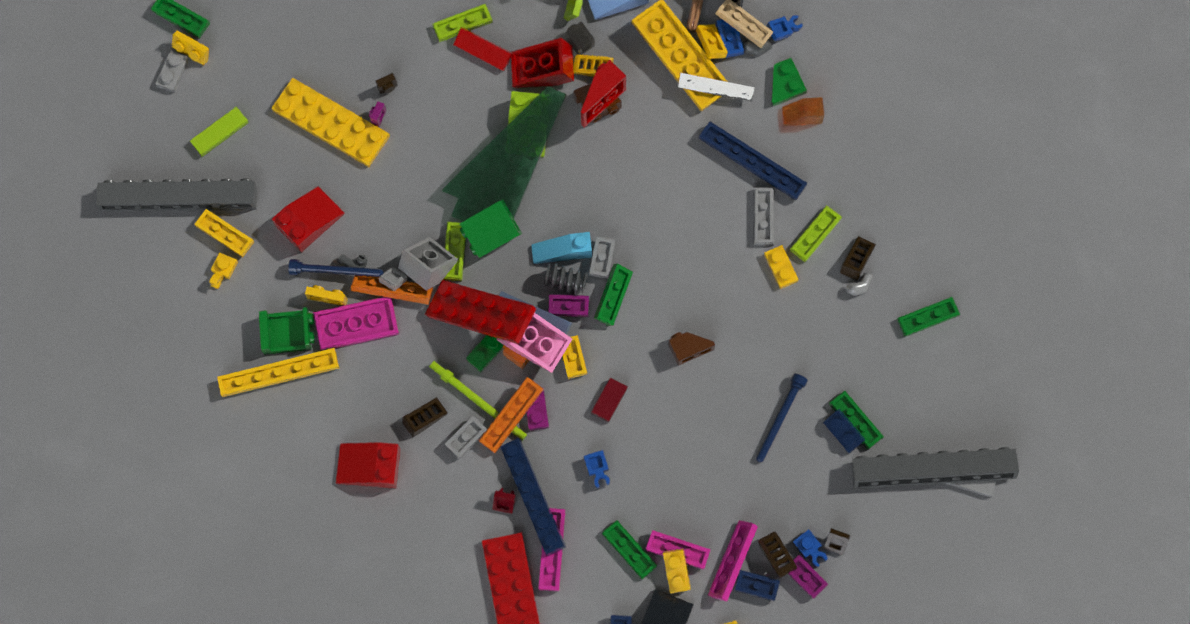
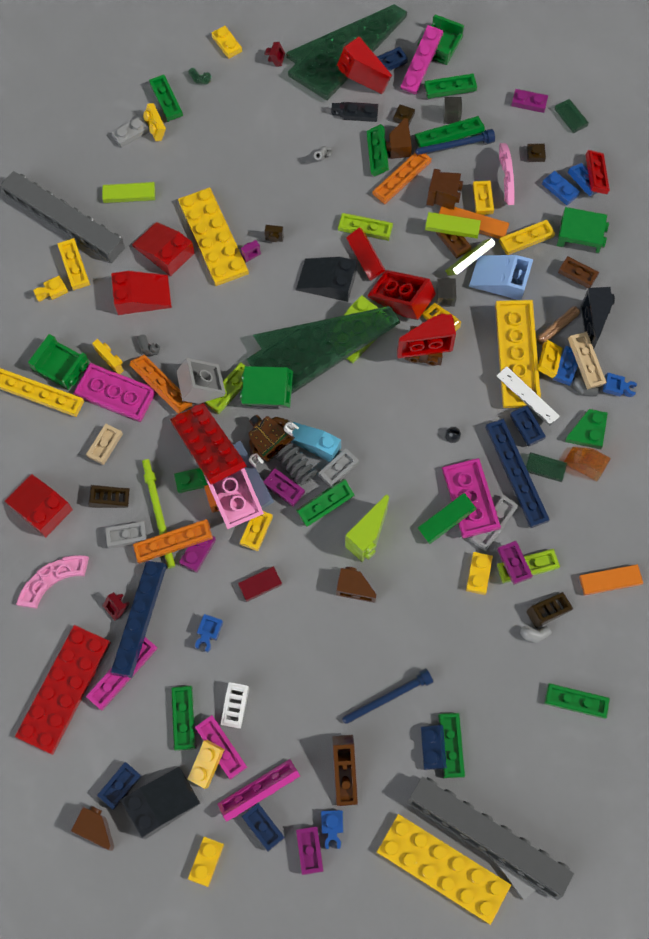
camera: 35 degrees right, 5 degrees down
(294, 162) = (165, 247): none -> red slope
(297, 267) = (104, 322): dark blue piece -> none
(385, 374) = (104, 444): none -> tan plate
(393, 278) = (166, 376): light grey tile -> none
(426, 516) = (48, 576): none -> bright pink tile
(465, 93) = (328, 277): none -> black slope
(525, 271) = (268, 437): none -> reddish brown torso
(650, 497) = (236, 687): none -> white slope
(669, 304) = (365, 534): none -> lime slope
(678, 166) = (452, 437): none -> black hinge
(724, 239) = (447, 518): none -> green tile
(730, 208) = (470, 479): none -> dark pink tile
(733, 113) = (527, 426): none -> dark blue plate
(770, 543) = (298, 798): dark brown slope -> none
(772, 139) = (546, 467): none -> clear green tile
(788, 496) = (345, 770): none -> reddish brown slope
(805, 238) = (514, 562): none -> magenta plate
(836, 541) = (358, 839): plate -> none
(889, 200) = (611, 580): none -> orange tile
(916, 517) = (444, 869): none -> yellow plate

